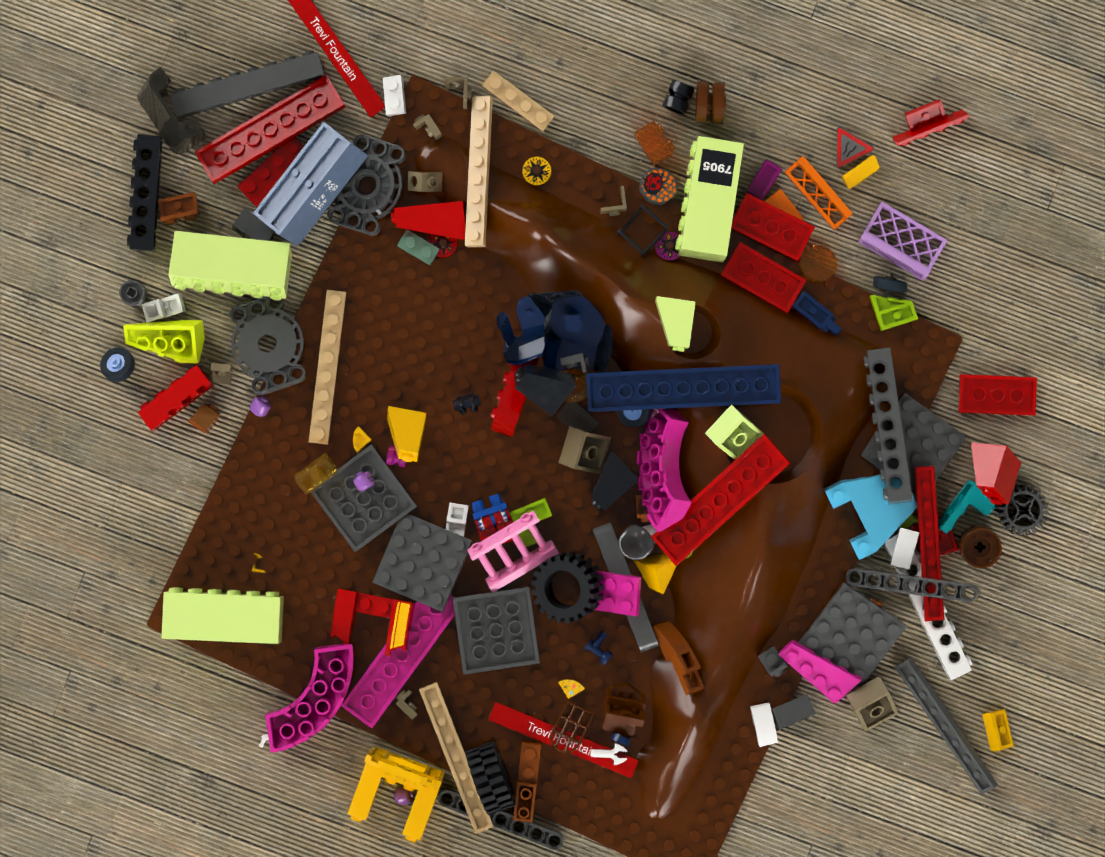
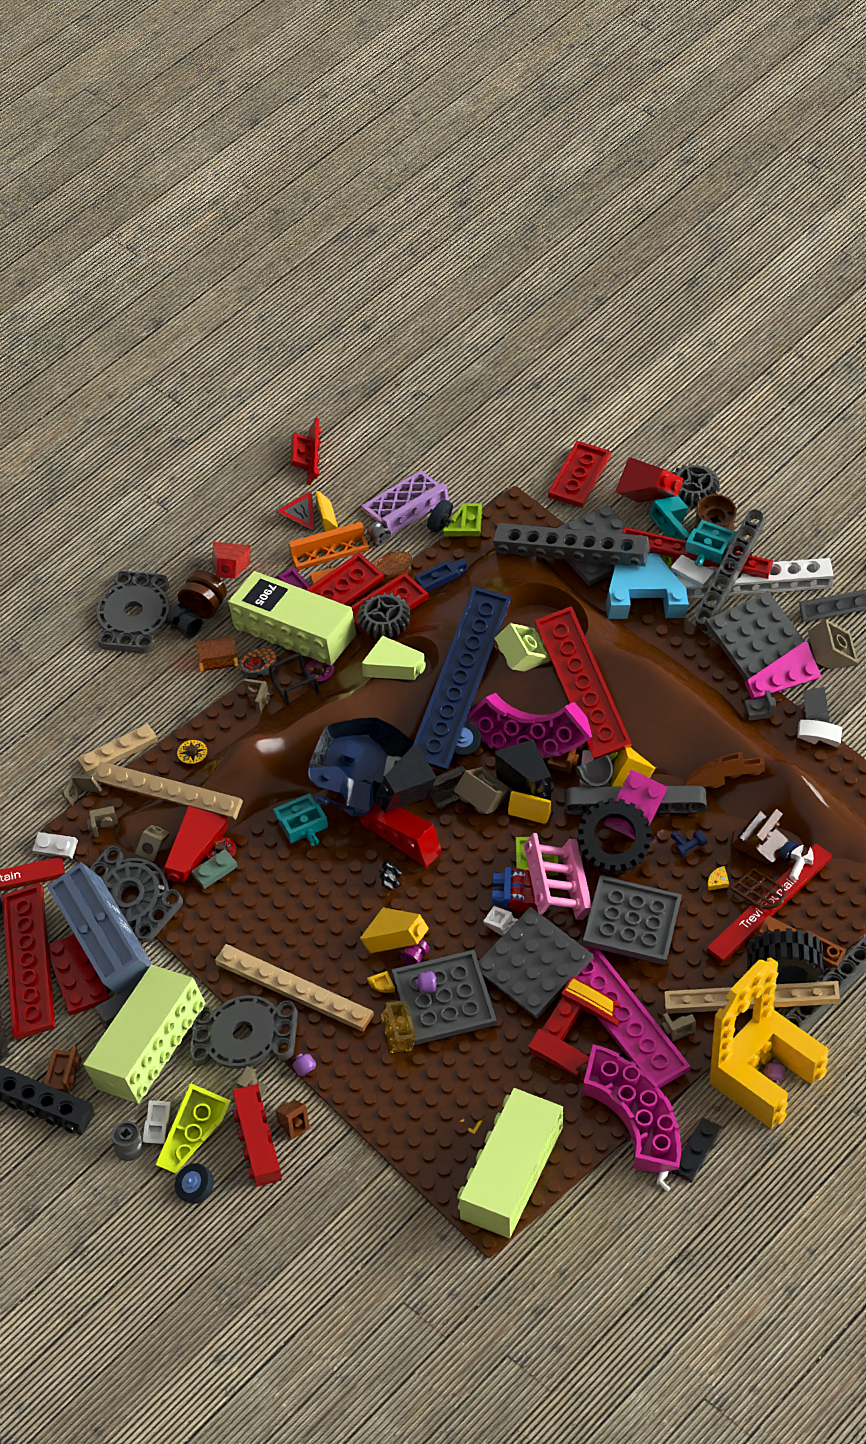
camera: 60 degrees left, 35 degrees down
(306, 758) = (697, 1149): none -> black plate
(493, 299) = (301, 819): none -> teal plate
(582, 497) = (529, 807): none -> yellow slope
(656, 45) = (135, 628): none -> dark grey piece
(745, 291) = (384, 615): none -> dark grey gear
(758, 110) = (230, 559): none -> red slope
(851, 233) = (379, 533): none -> flat silver wheel
(938, 556) = (709, 542): none -> teal plate

